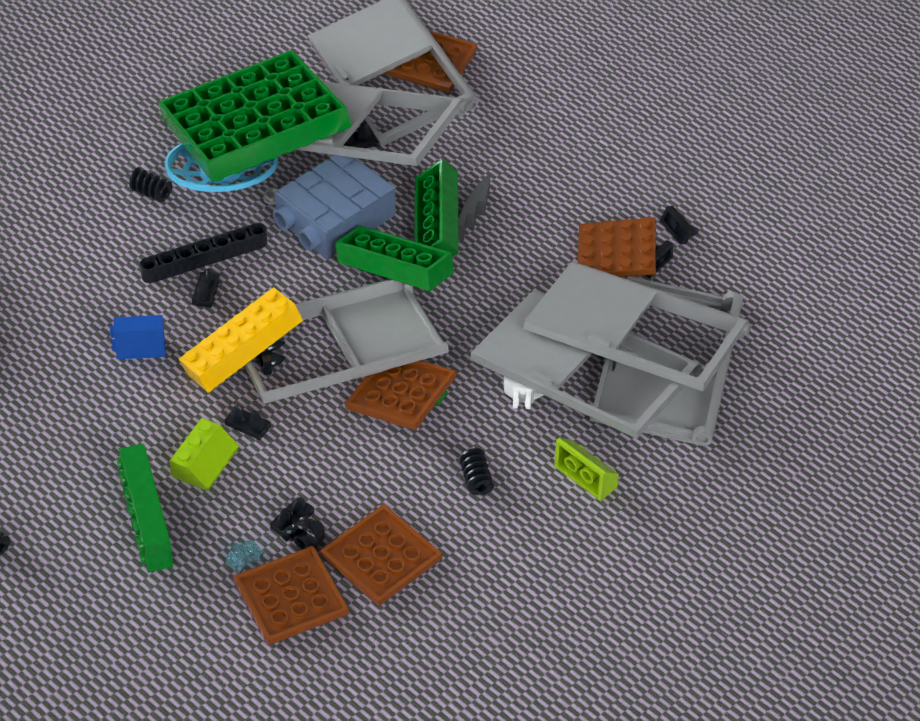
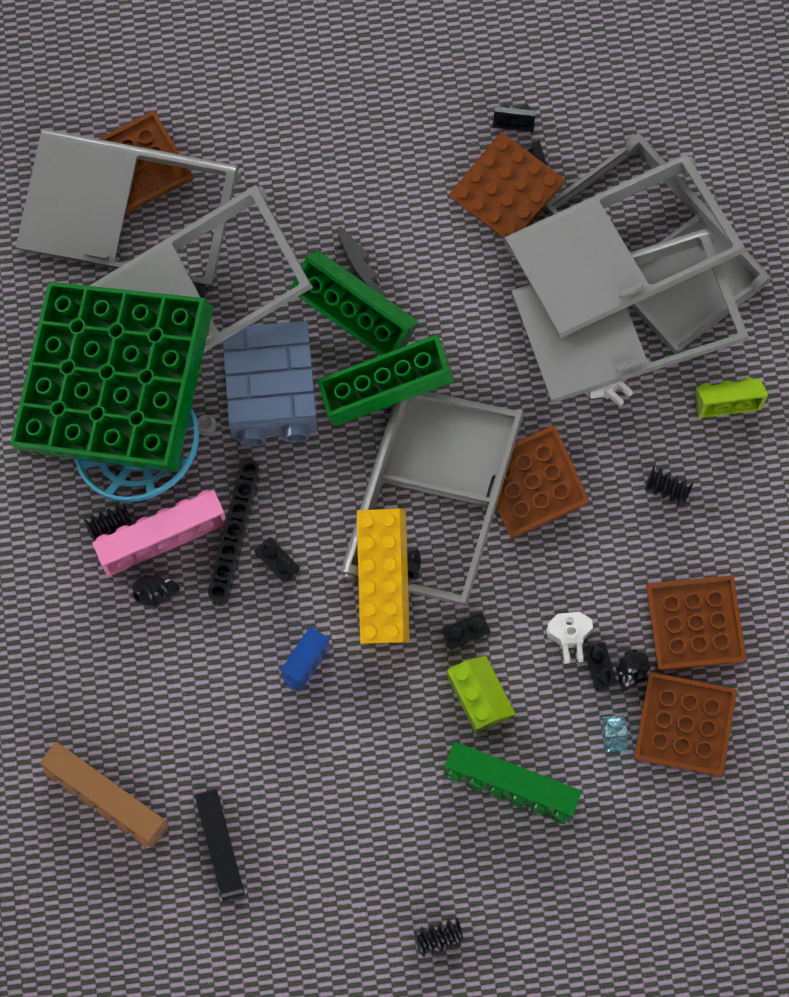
camera: 50 degrees left, 25 degrees up
(120, 234) = (153, 590): none -> black head
(163, 209) = (160, 532): none -> bright pink brick
(299, 479) = (570, 635): none -> white hinge

